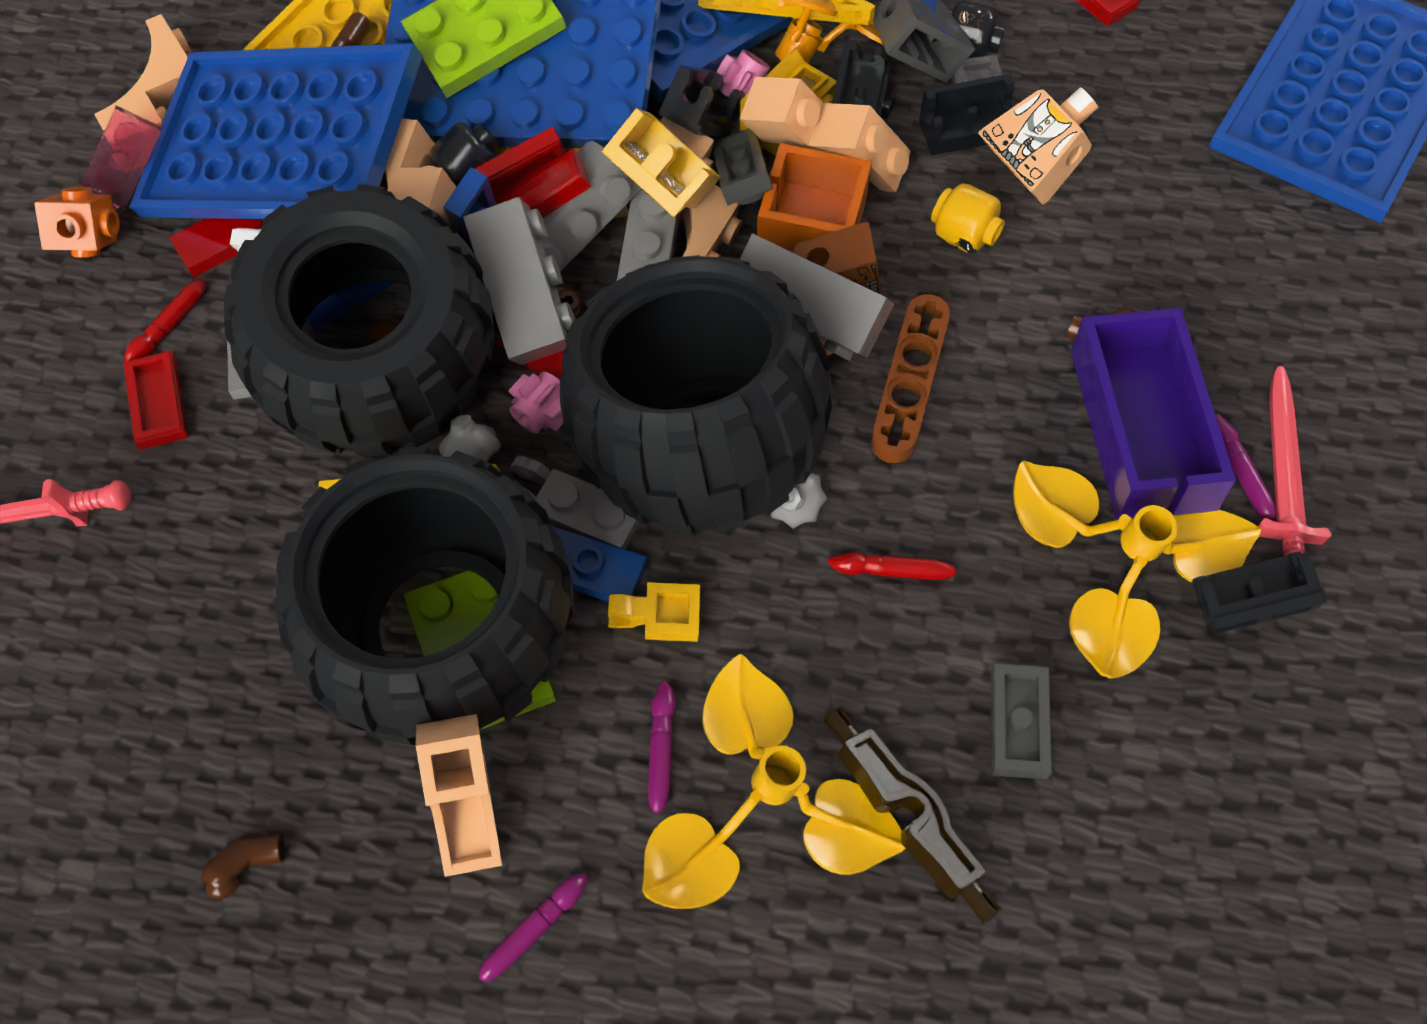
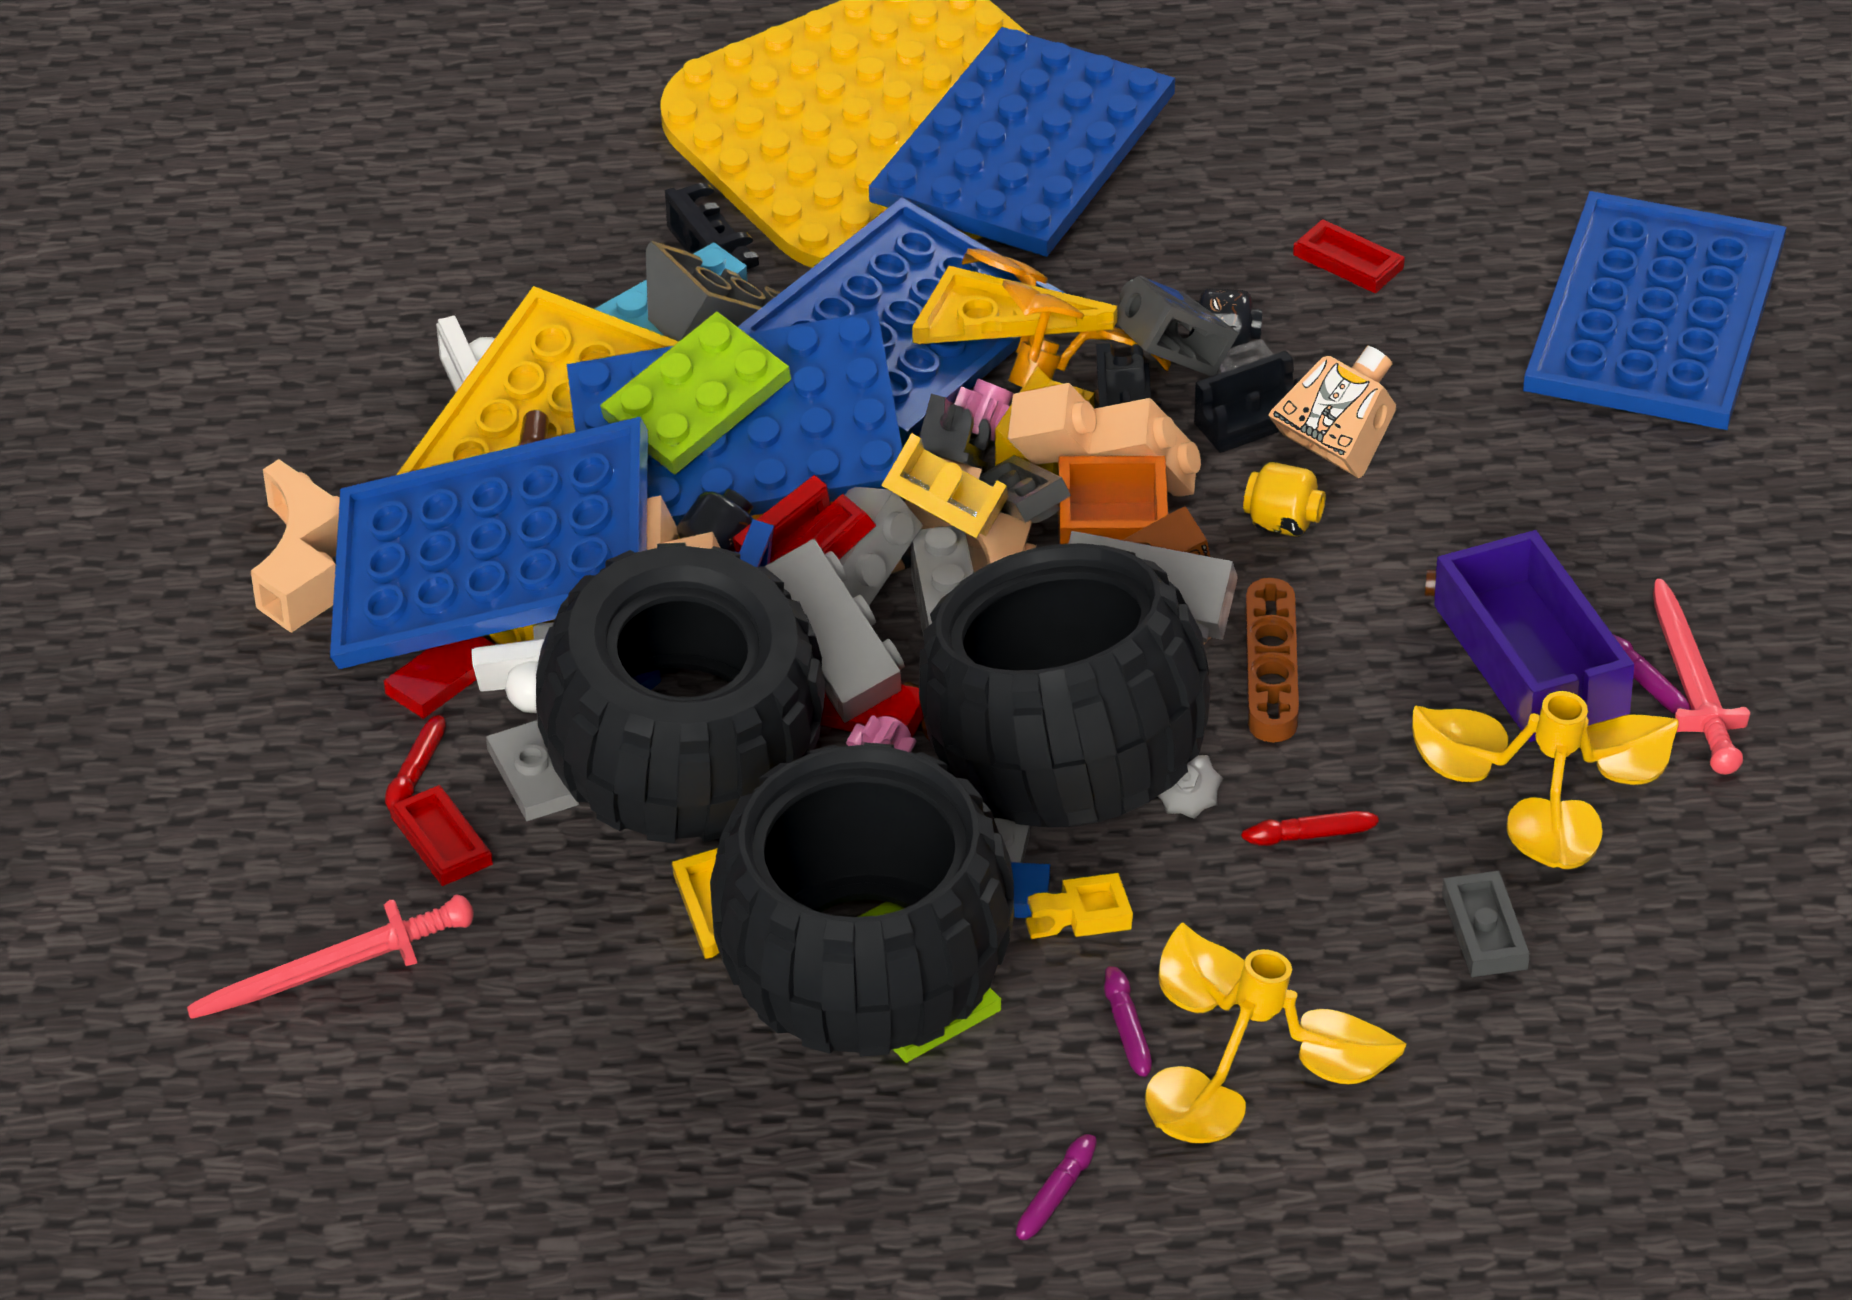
camera: 15 degrees left, 20 degrees down
(77, 221) = (264, 696): orange brick -> none
(121, 156) = (304, 608): clear pink plate -> none
(240, 853) = (733, 1190): reddish brown arm -> none
(458, 793) = (952, 1064): light nougat arch -> none
(930, 834) = (1421, 1023): dark brown piece -> none
(1259, 592) = (1690, 771): black hinge -> none

